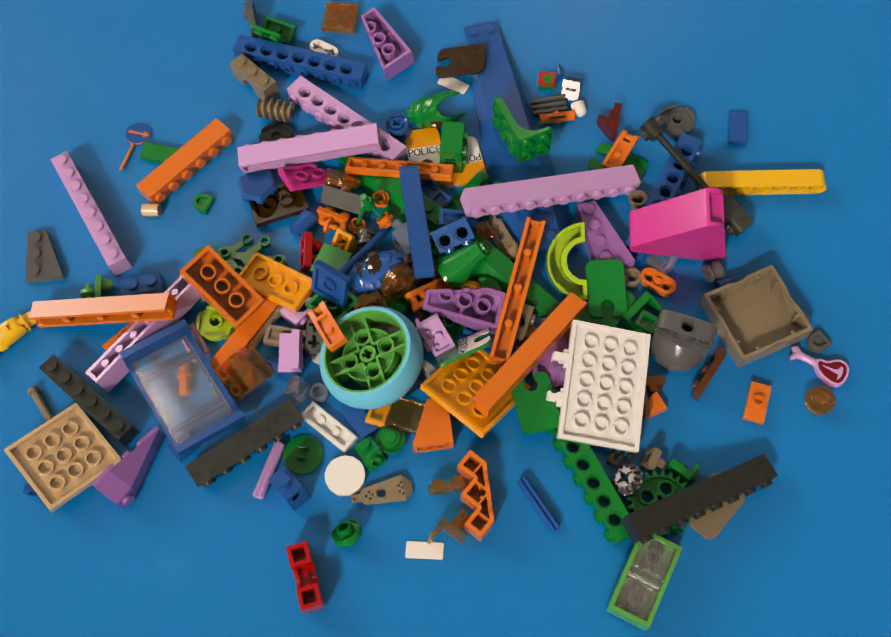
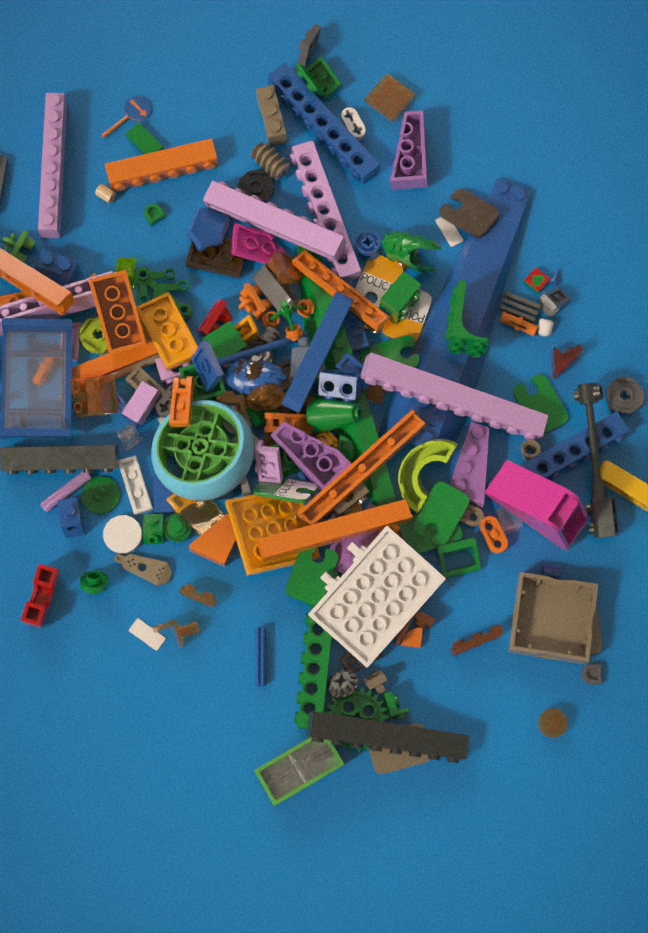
camera: 25 degrees right, 10 degrees up
(304, 222) = (225, 289): blue brick -> none
(319, 392) = (144, 450): sand blue tile -> none
(477, 495) = (215, 619): orange brick -> none
(508, 244) = (385, 418): dark tan piece -> none
(620, 150) = (549, 394): orange plate -> none
(645, 323) = (451, 566): green bracket -> none
(681, 341) = (462, 608): dark grey piece -> none
(713, 271) = (548, 556): dark grey wheel -> none
(756, 402) = (499, 690): orange plate -> none
(830, 372) = (582, 706): lavender piece -> none

